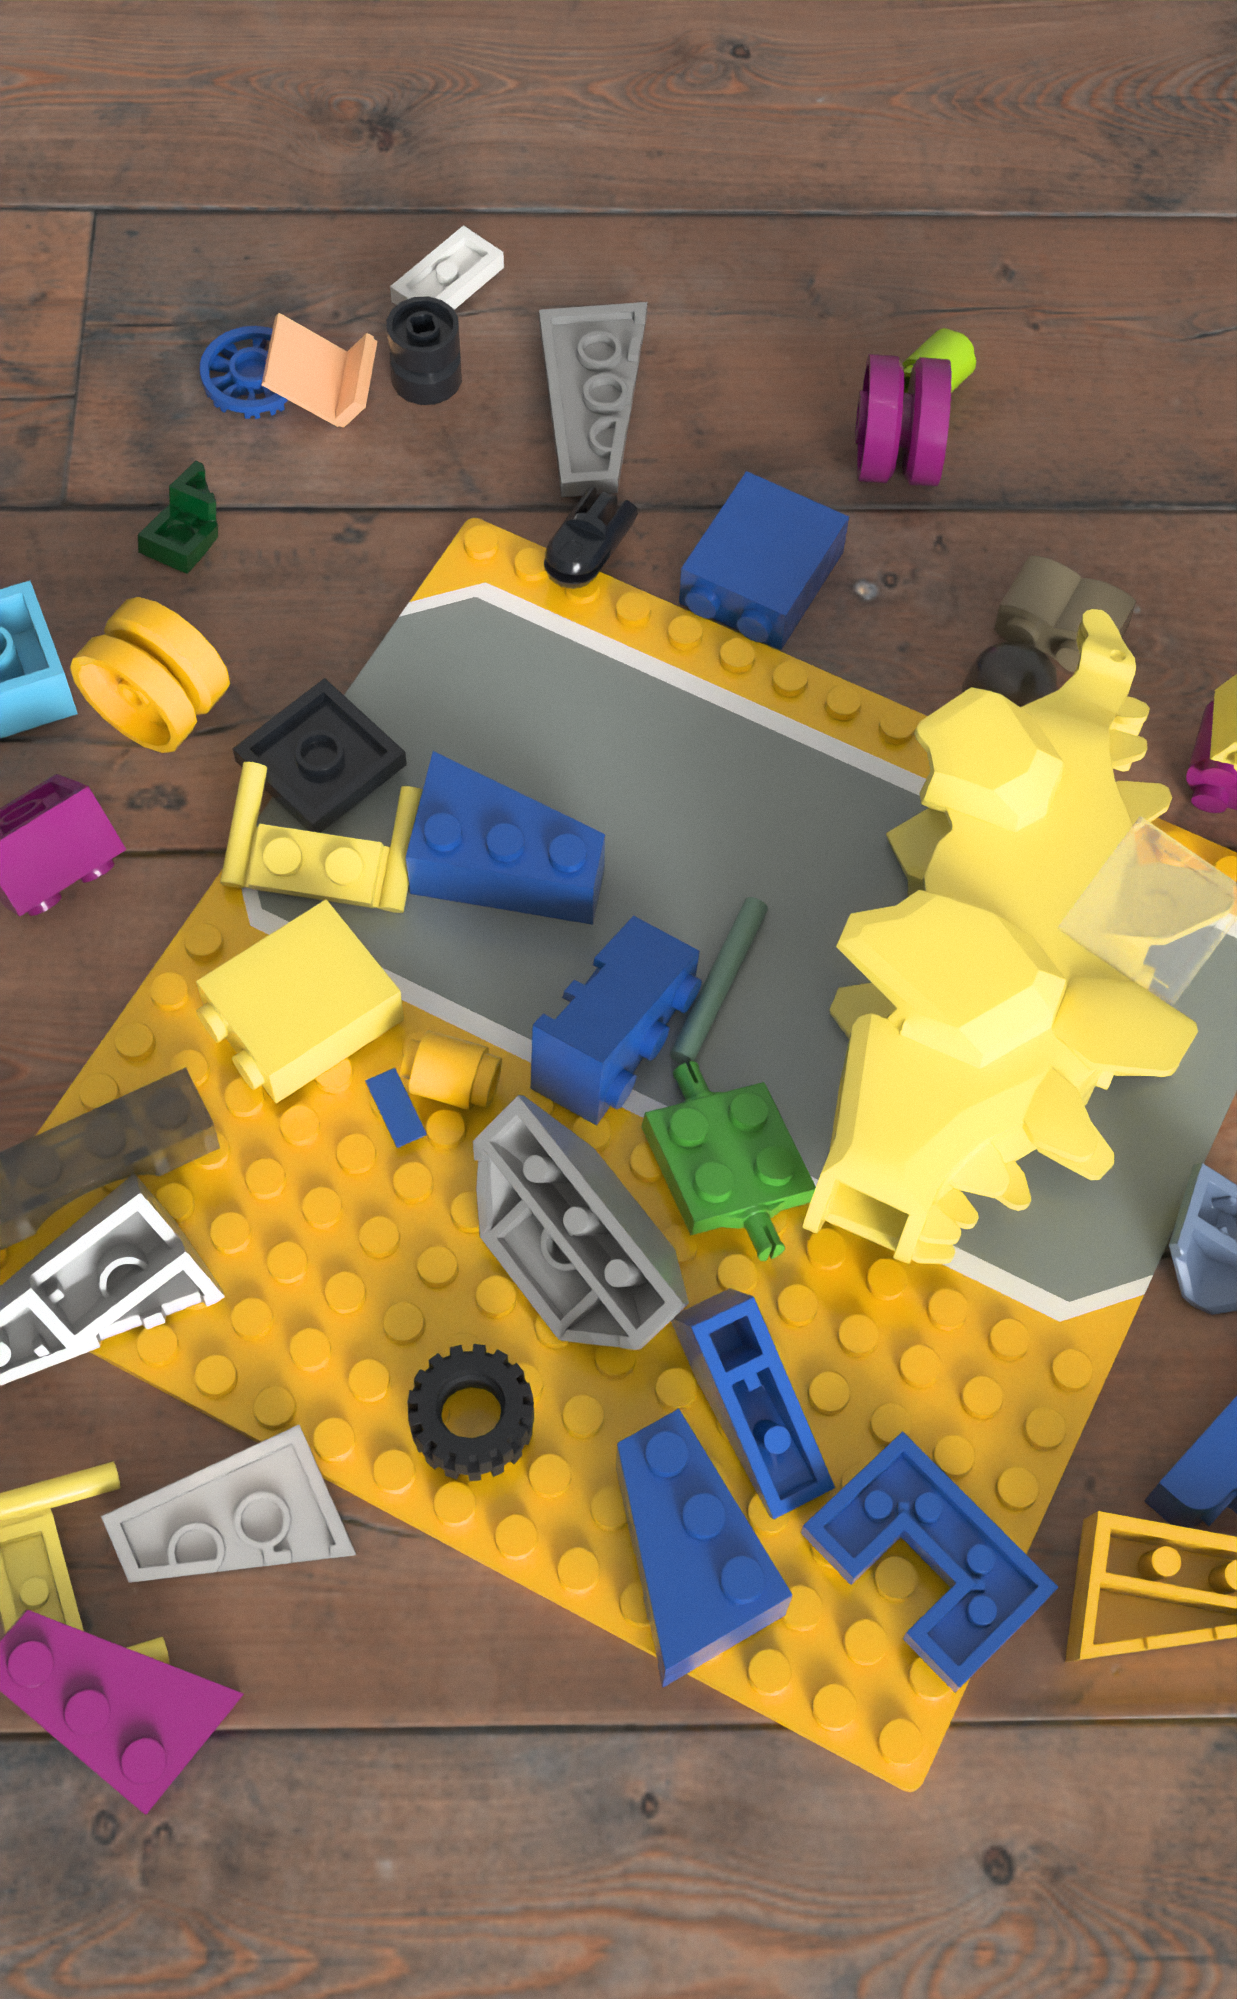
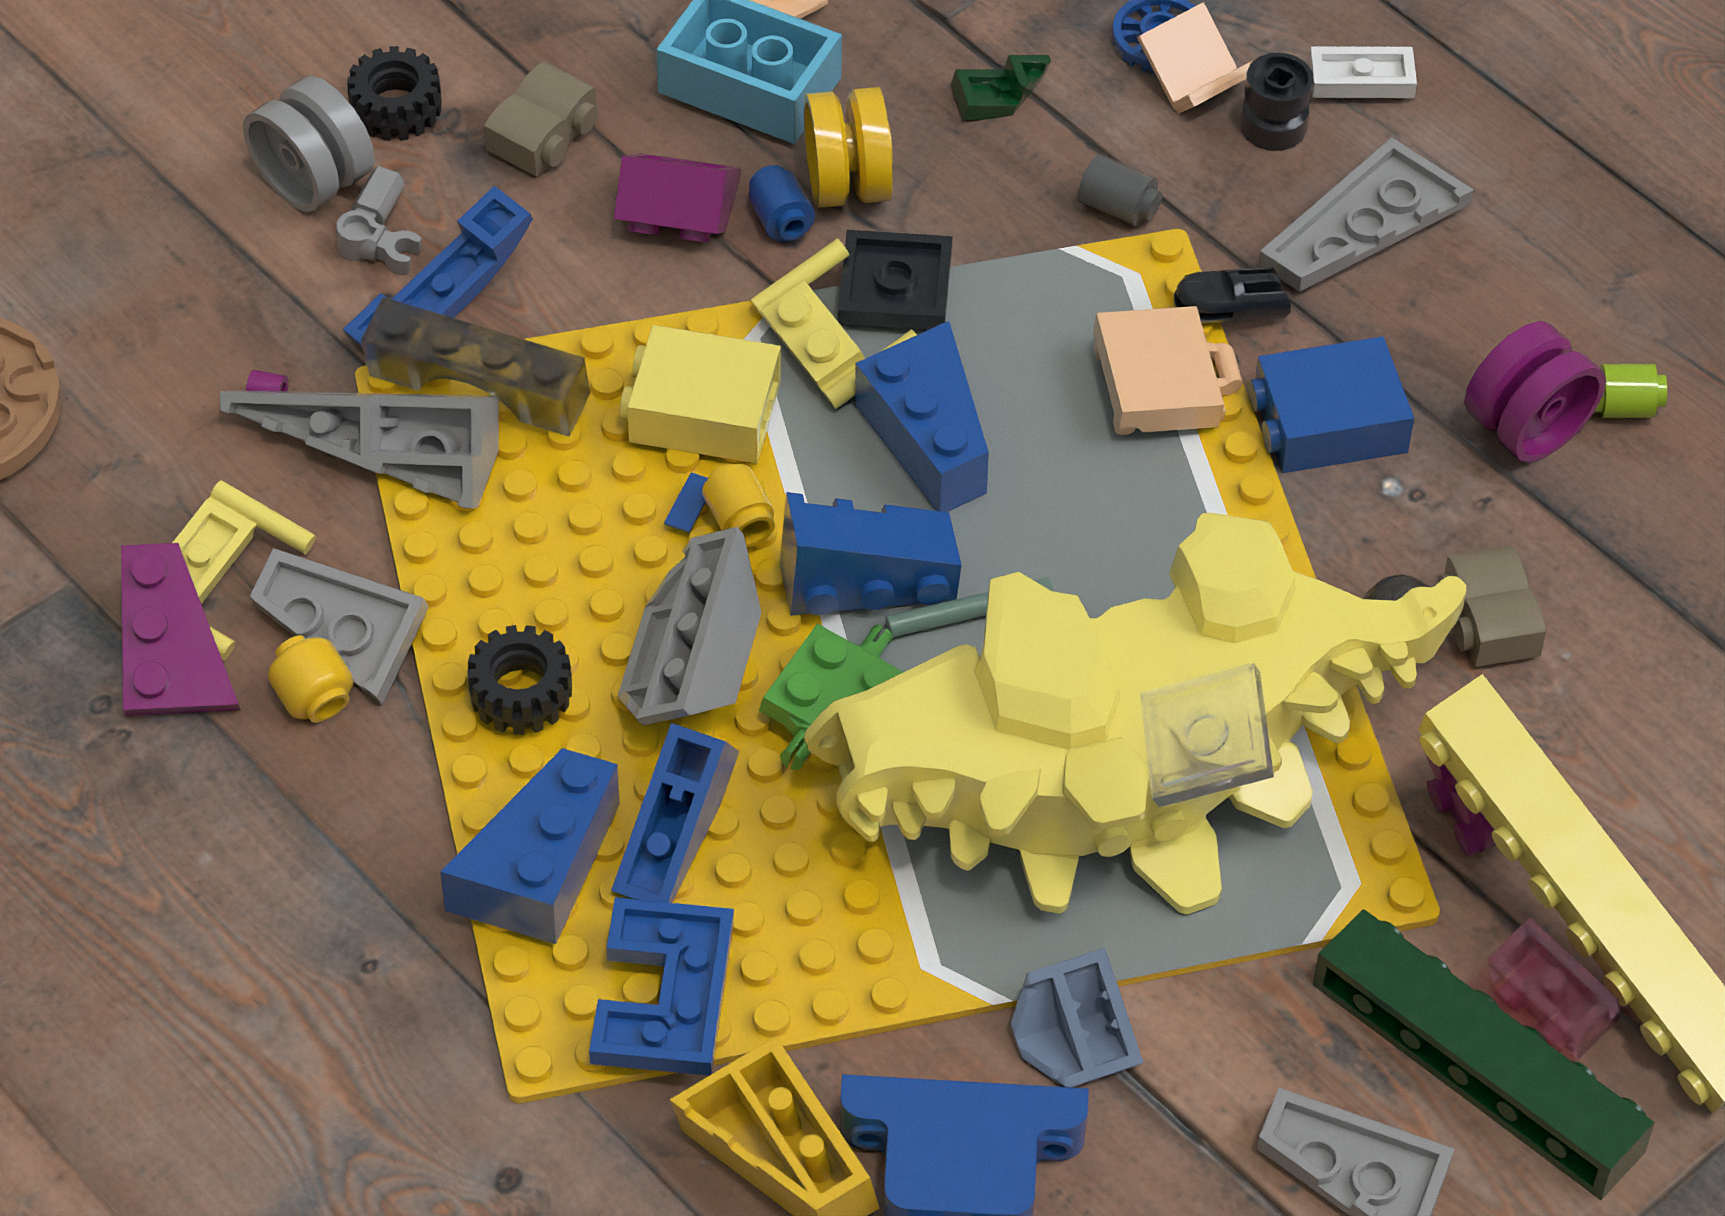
camera: 50 degrees right, 10 degrees down
(138, 775) = (780, 203): none -> blue brick
(282, 1601) = (310, 678): none -> yellow head
(395, 526) = (1119, 191): none -> dark grey brick
(620, 644) = (1163, 370): none -> light nougat piece

